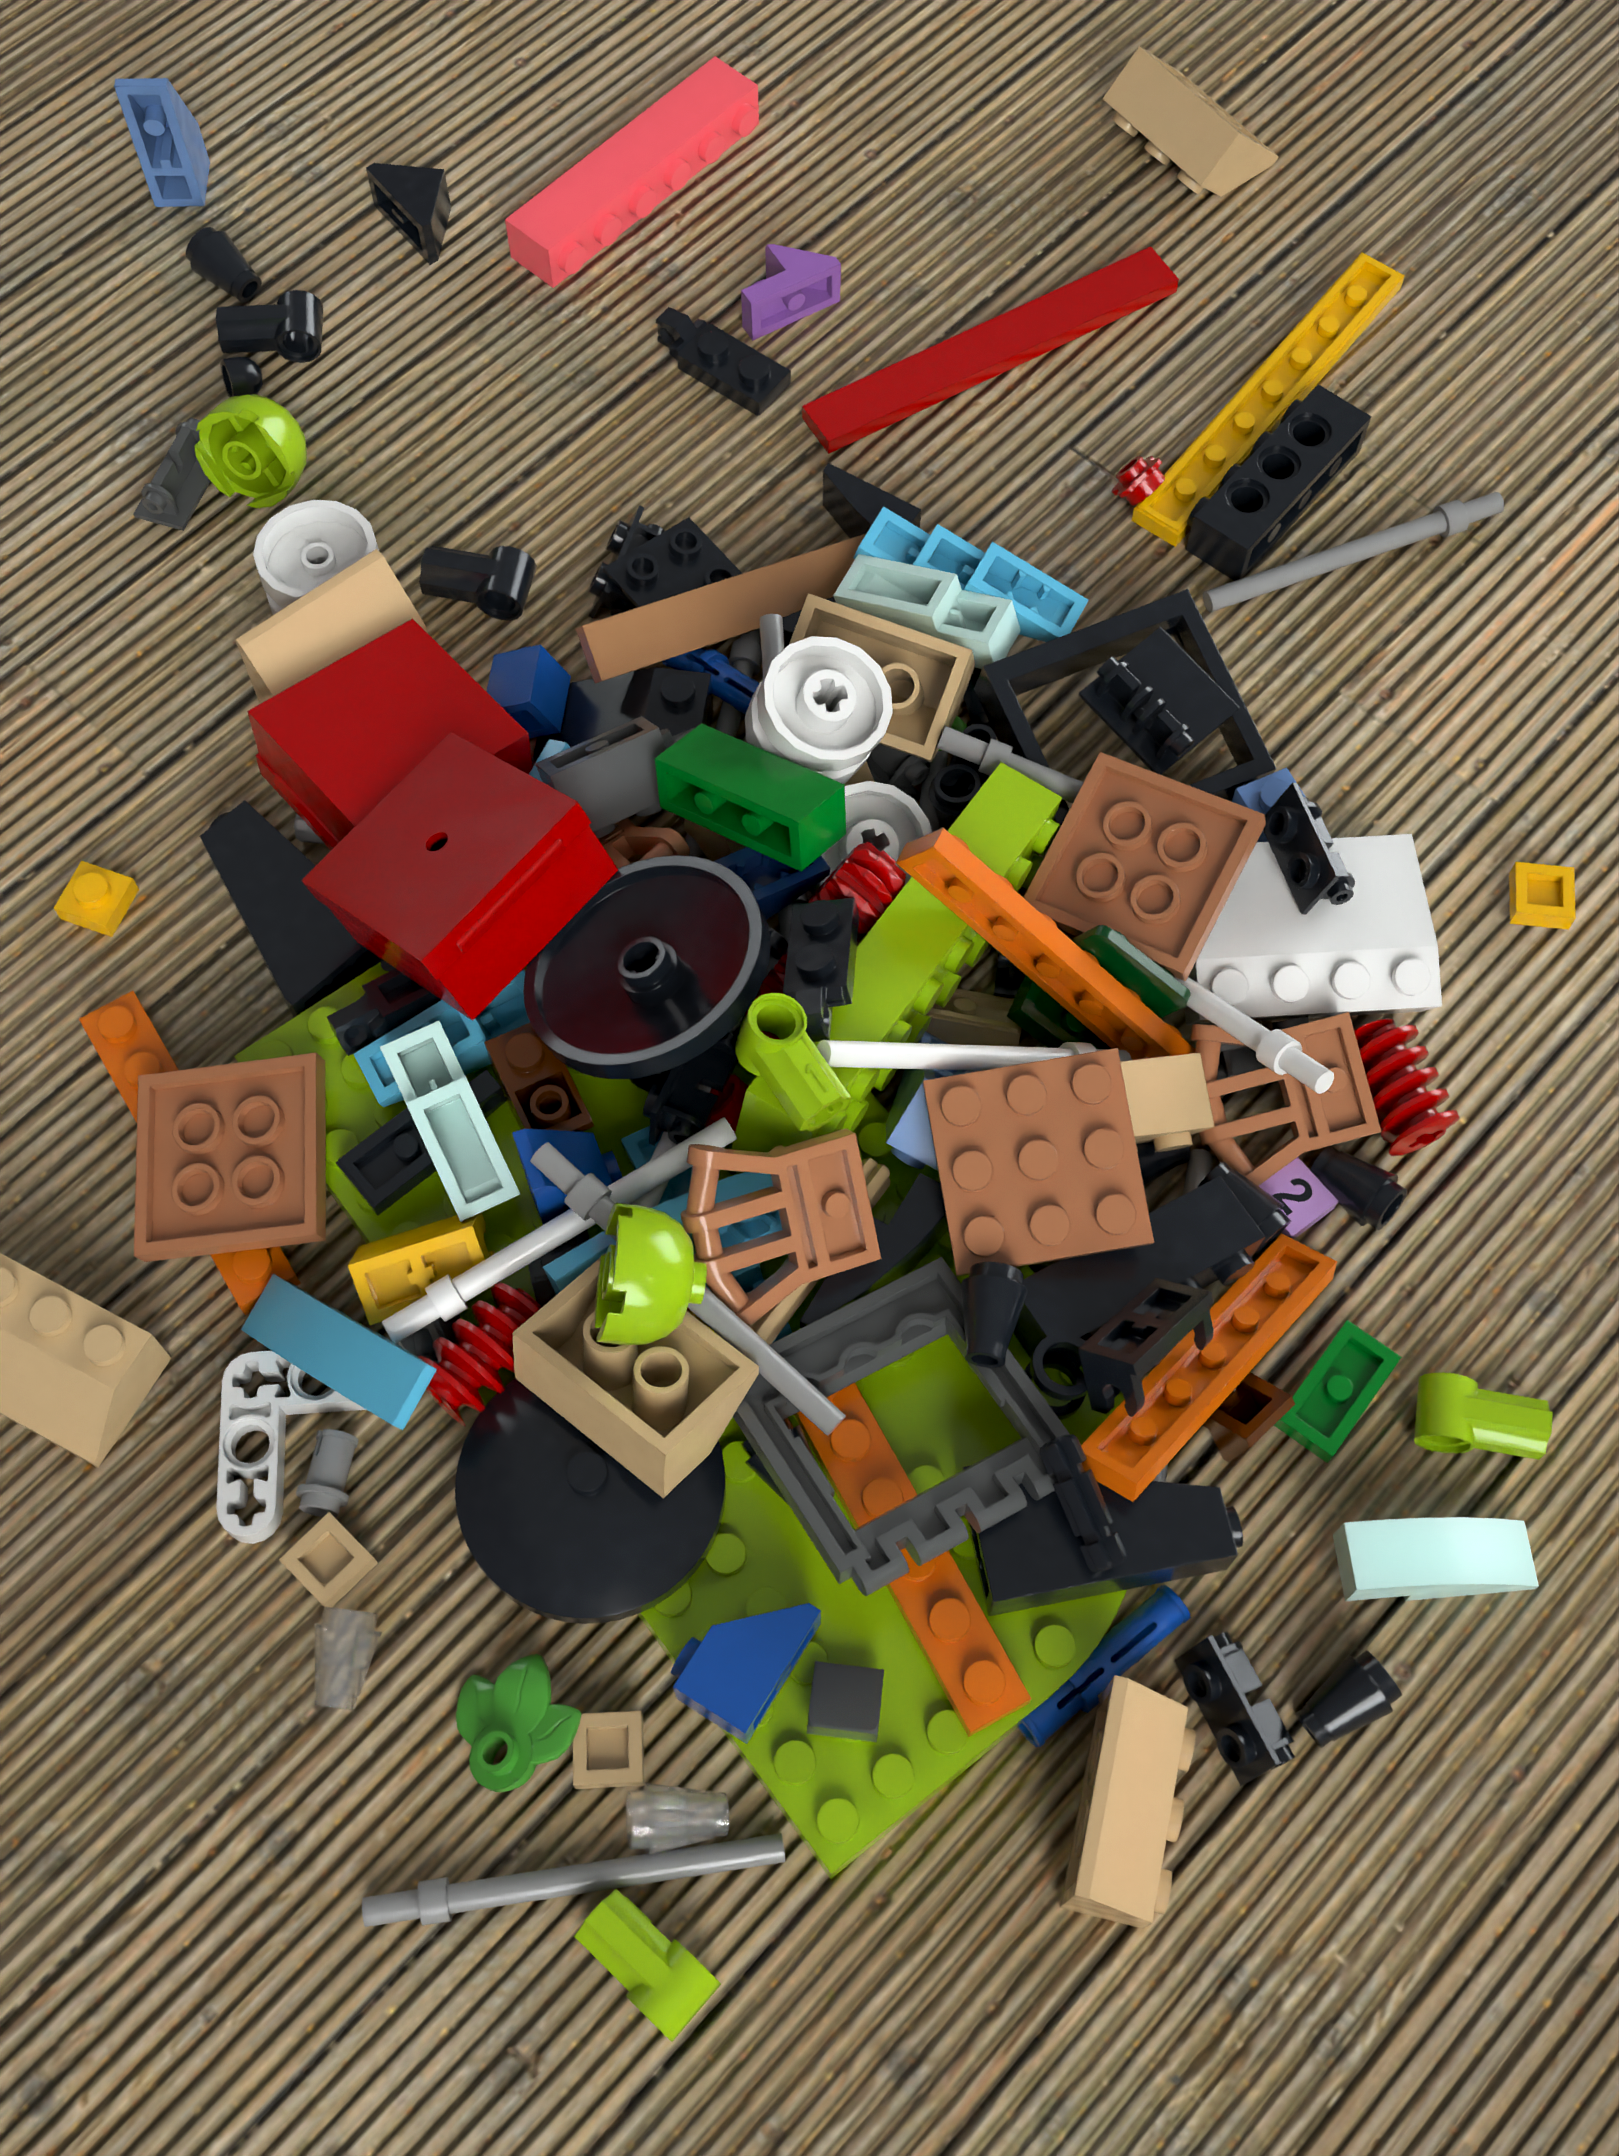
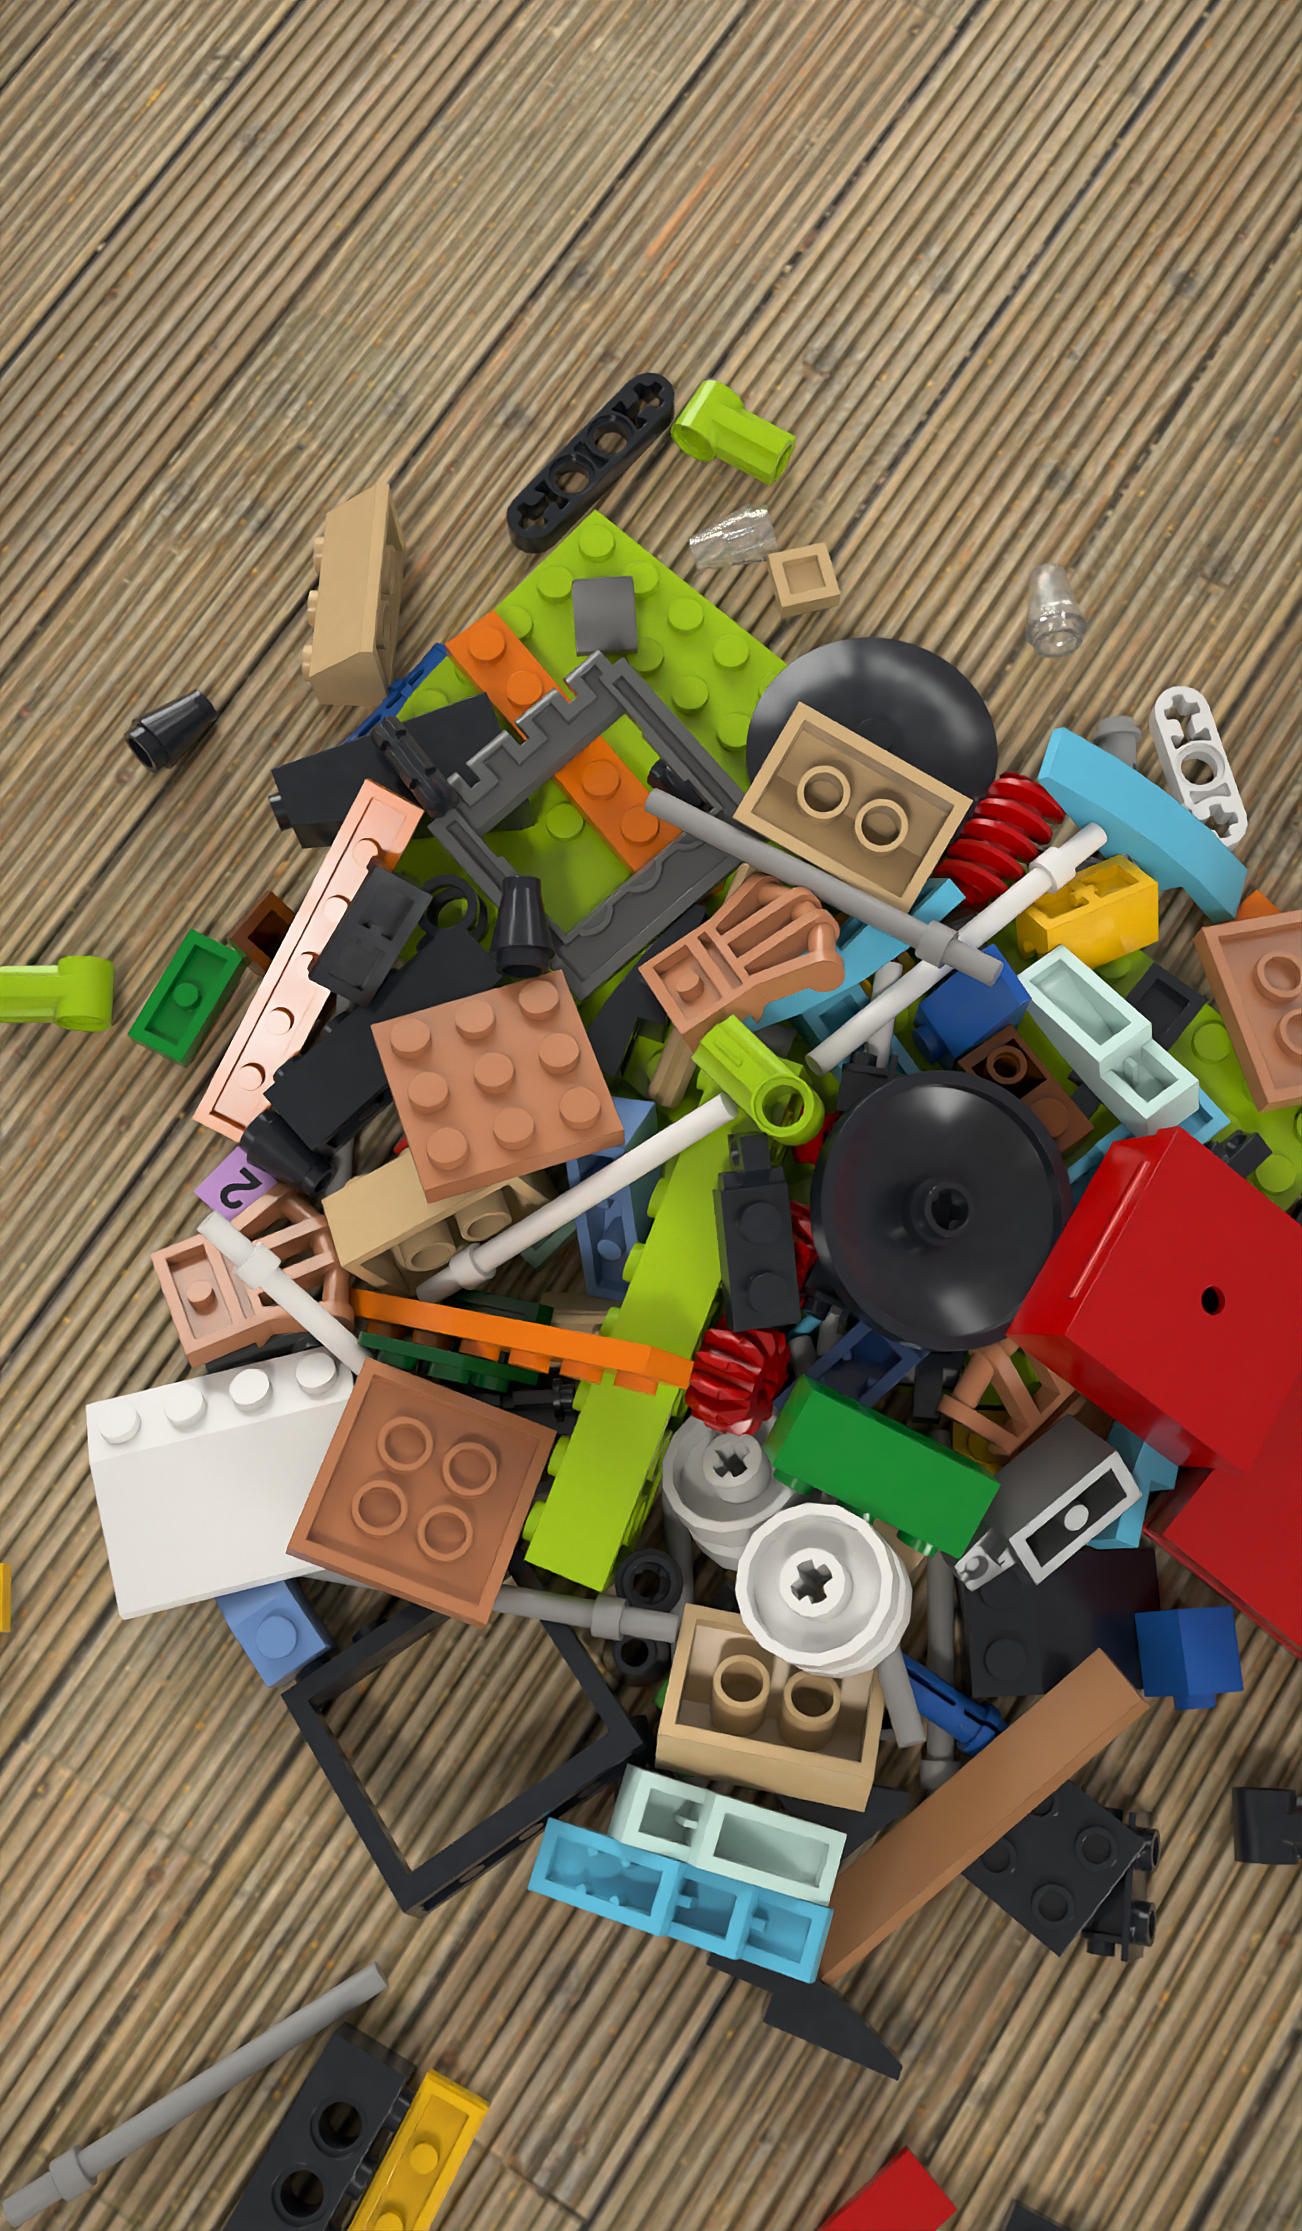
camera: 175 degrees right, 10 degrees up
(328, 1561) = (1092, 682): tan plate -> none
(438, 1899) = (913, 453): light grey bar -> none
(516, 1714) = (890, 589): bright green plate -> none
(645, 1277) = (856, 847): lime cylinder -> none
(743, 1666) = (697, 620): blue slope -> none
(828, 1975) = (585, 458): none -> black beam
(1139, 479) = (486, 2155): red plate -> none
(1158, 701) = (424, 1738): black hinge -> none
(1247, 1736) = (255, 690): black hinge -> none
(1303, 853) = (230, 1520): black hinge -> none
(1361, 1188) = (166, 1205): black cone -> none
(1399, 1089) = (125, 1322): red piece -> none
(1433, 1557) = (95, 857): light aqua slope -> none

